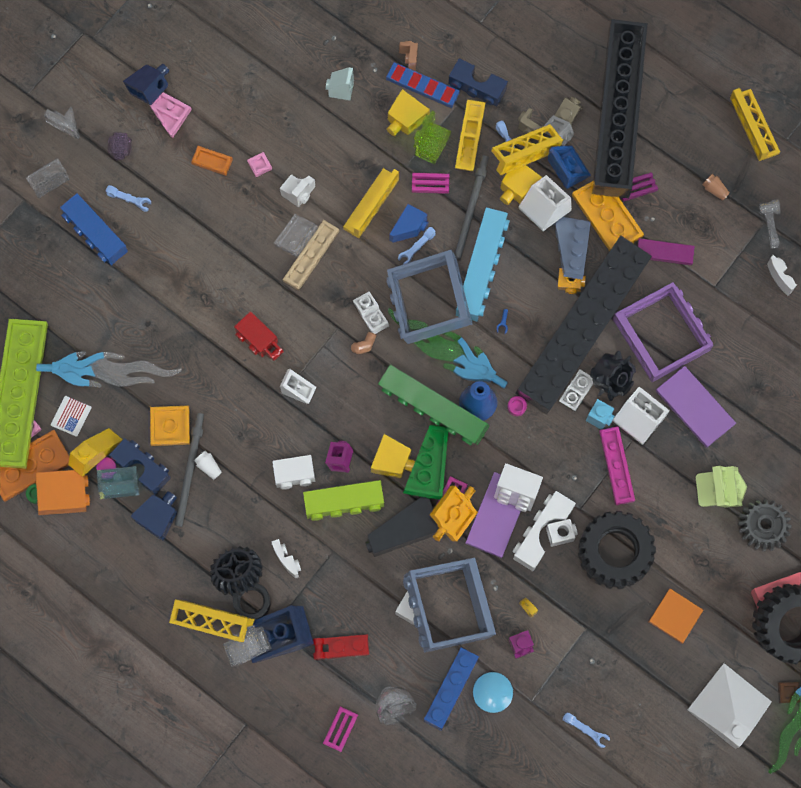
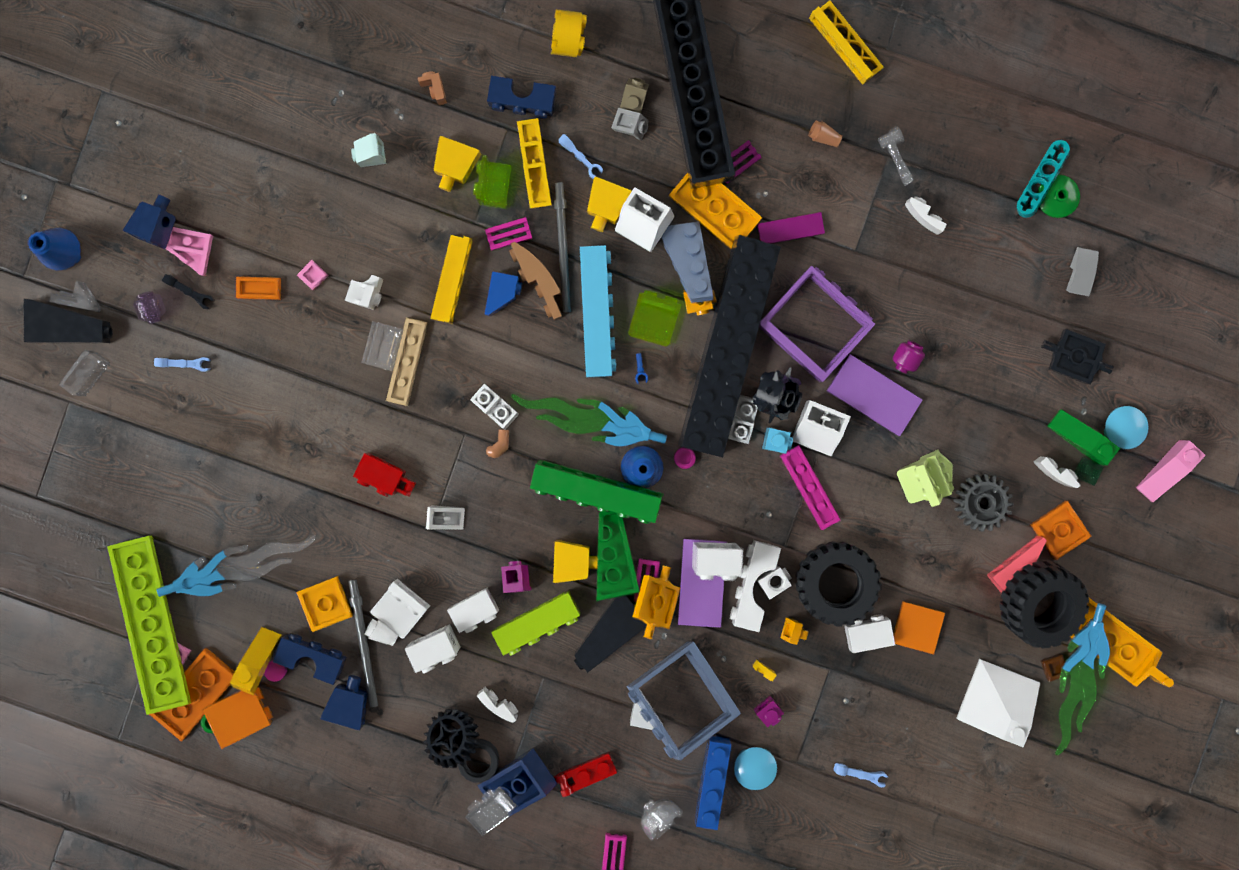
camera: 15 degrees left, 15 degrees up
(44, 138) = (58, 325): none -> black slope
(63, 78) = (56, 248): none -> blue cone
(71, 416) = (216, 626): sticker -> none
(93, 229) = (158, 414): blue brick -> none
(118, 482) = (293, 686): clear light blue brick -> none
(143, 131) = (200, 298): none -> black piece
(215, 614) = (438, 790): yellow fence -> none
(232, 450) = (400, 608): none -> white bracket
(248, 489) = (432, 649): none -> white brick
(394, 274) = (580, 354): sand blue window -> none
(422, 85) = (461, 118): blue tile -> none
(428, 235) = (513, 324): light blue piece -> none
(442, 219) = (533, 272): none -> medium nougat slope
(525, 124) = (598, 133): dark tan bracket -> none
(528, 155) = (608, 169): yellow fence -> none
(529, 284) = (654, 318): none -> clear neon green bracket
(531, 47) = (567, 33): none -> yellow brick
(564, 581) = (793, 631): none -> light orange tile
(567, 165) = (654, 162): blue slope -> none
(631, 605) = (870, 634): none -> white brick
(734, 383) = (908, 356): none -> magenta head

